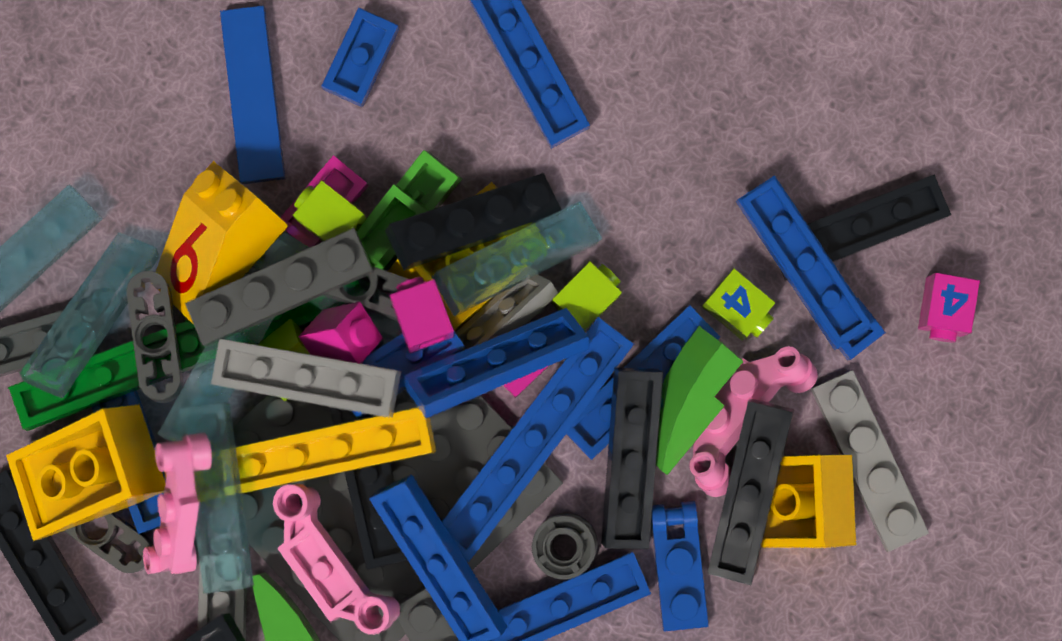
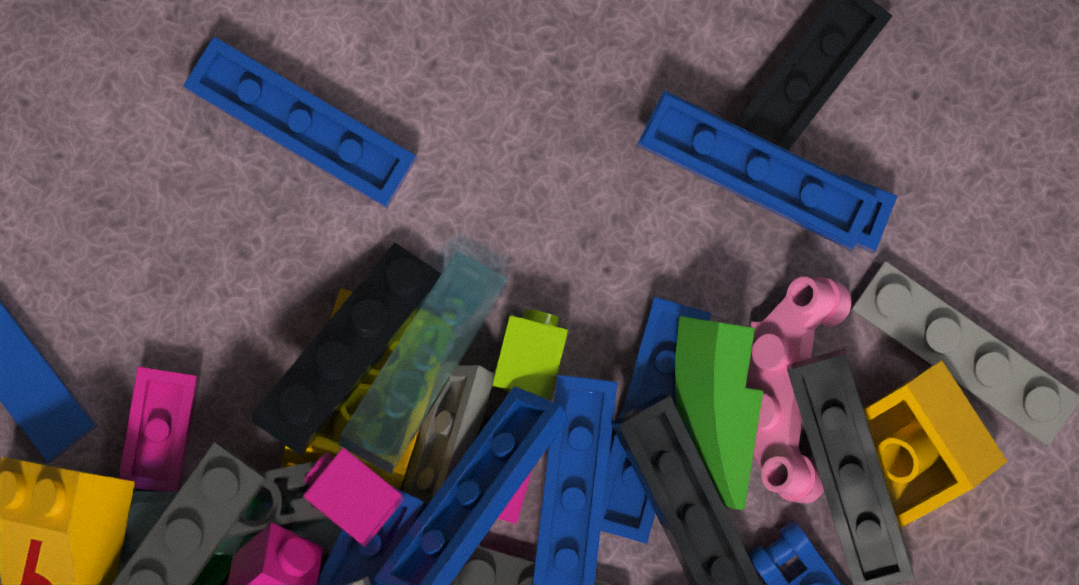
camera: 25 degrees left, 0 degrees up
(326, 212) = (171, 440): lime brick -> none
(360, 57) = (101, 233): blue plate -> none
(419, 190) = (262, 353): bright green slope -> none
(740, 306) = (713, 264): lime brick -> none
(948, 306) = (951, 123): dark pink brick -> none

